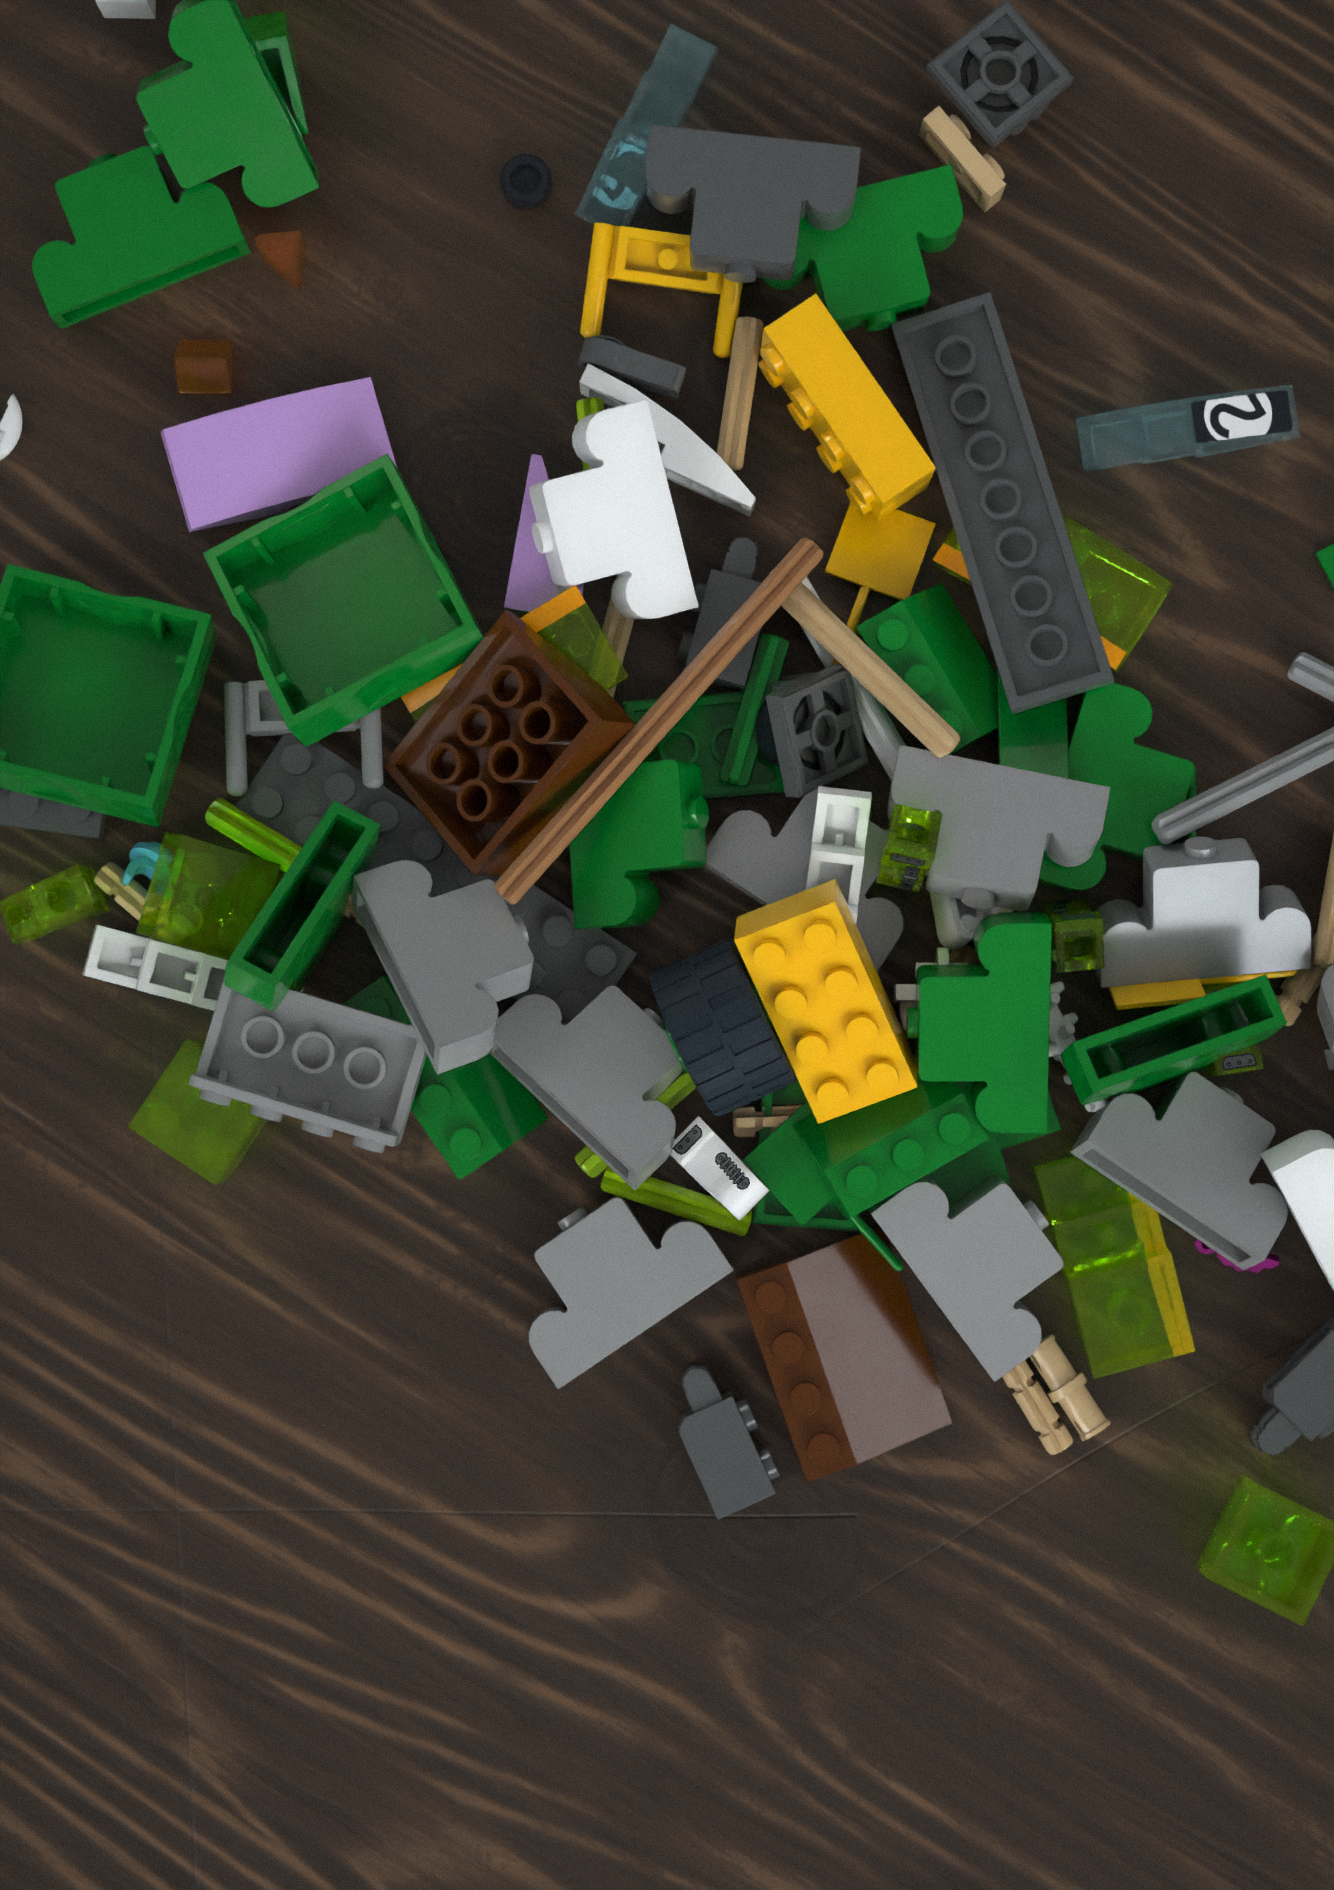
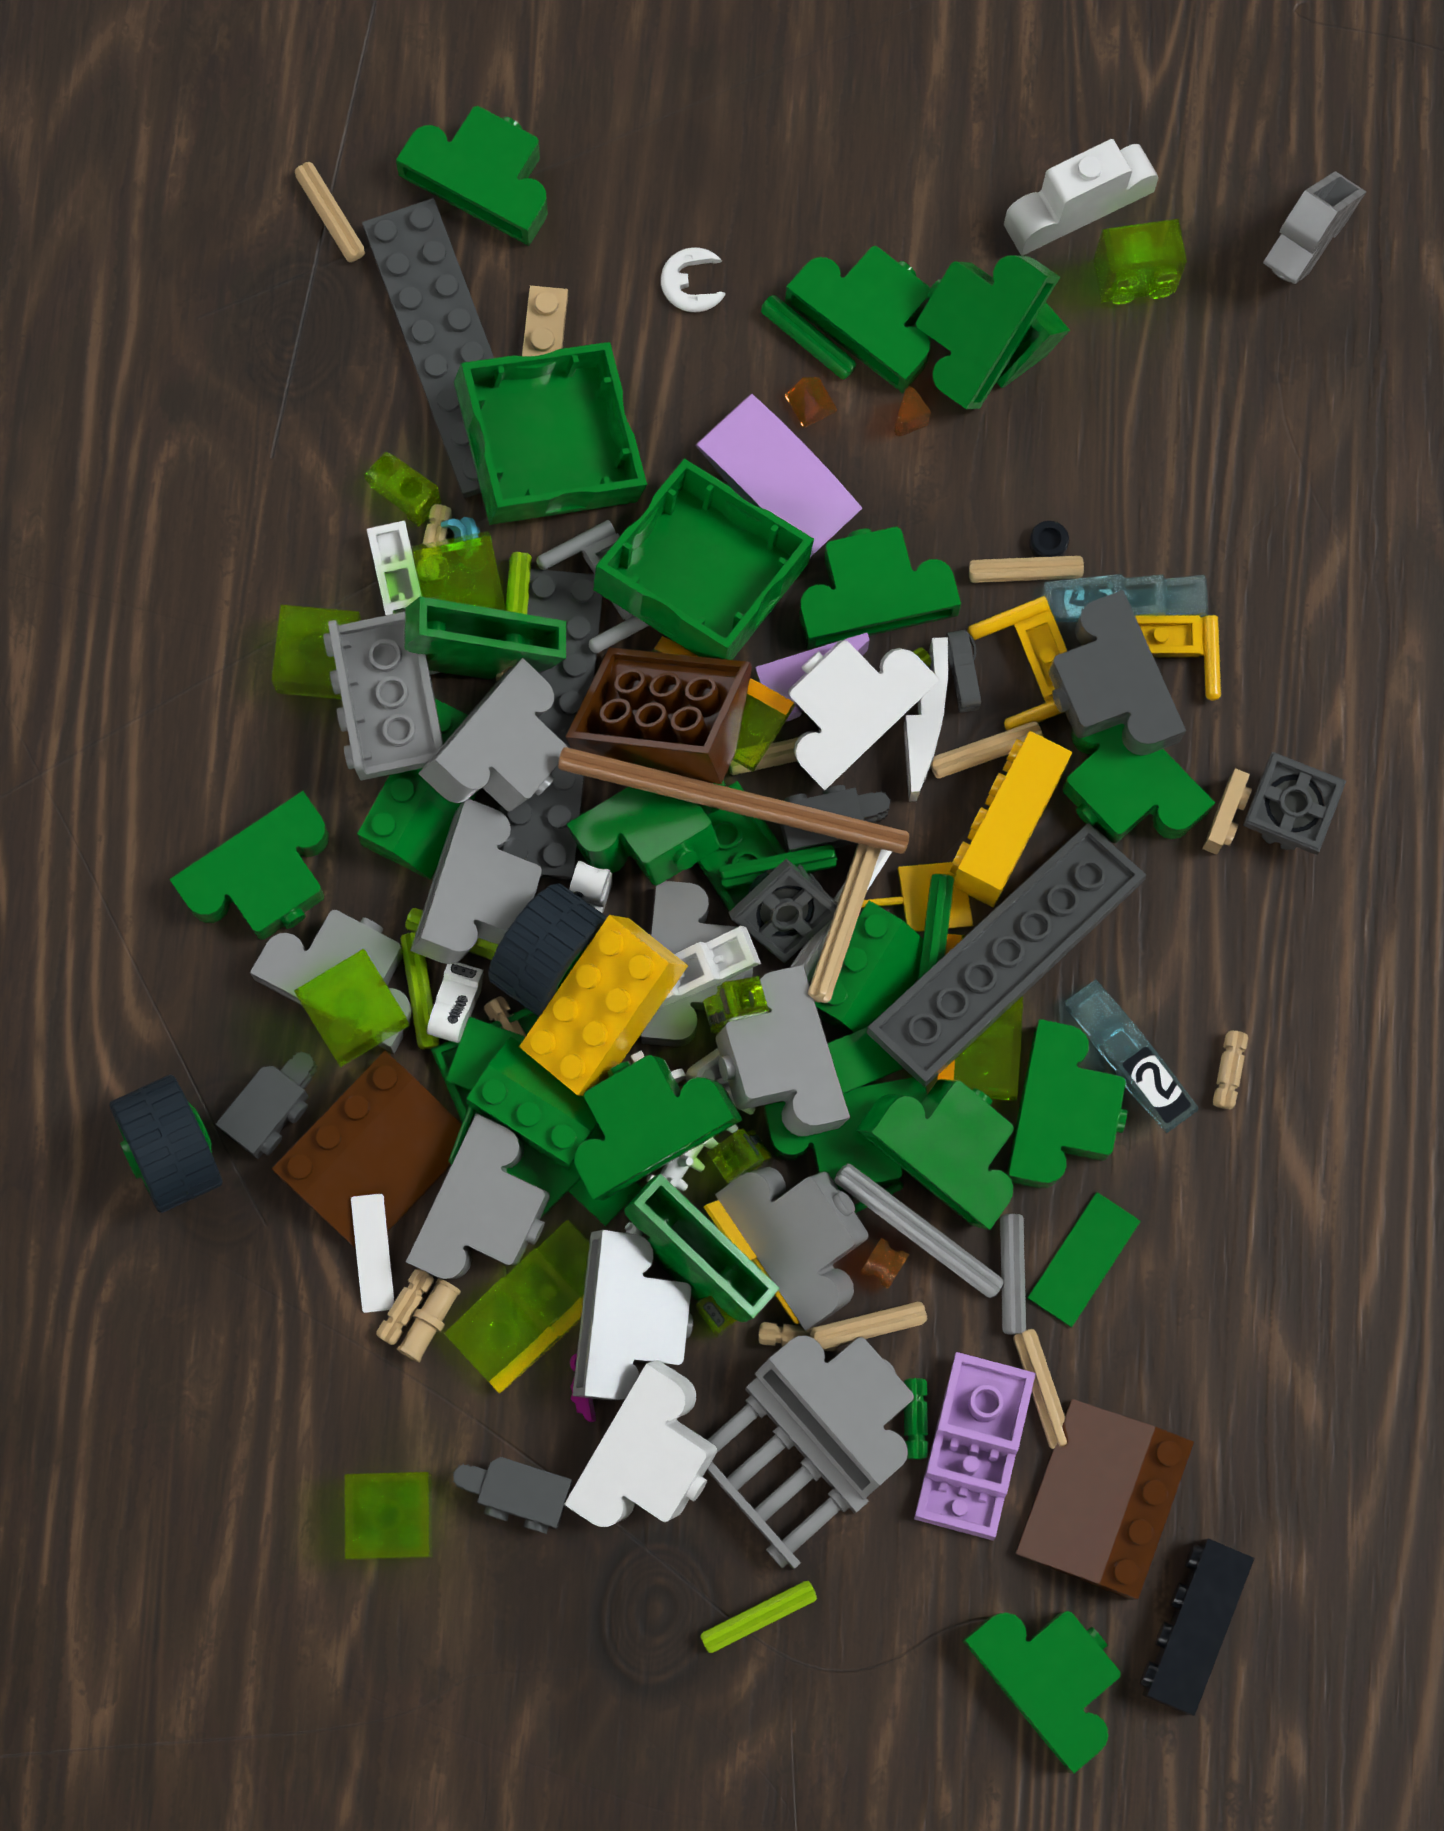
camera: 60 degrees right, 10 degrees down
(122, 325) = (808, 337): none -> green axle
(437, 1313) = (260, 871): none -> green brick
(479, 416) = (875, 589): none -> green brick
(546, 227) = (1026, 569): none -> tan axle
(665, 940) = (591, 885): none -> white leg
(670, 1295) = (352, 1007): none -> clear neon green brick
(715, 1592) = (166, 1143): none -> black wheel
(733, 83) = (1186, 638): none -> yellow plate
(922, 566) = (936, 921): none -> green axle
(956, 1411) = (372, 1252): none -> white sticker
(1189, 693) = (947, 1146): none -> green brick
(1206, 539) = (1063, 1108): none -> green brick
(1259, 324) = (1230, 1069): none -> tan axle
(1276, 836) = (884, 1263): none -> clear orange wheel

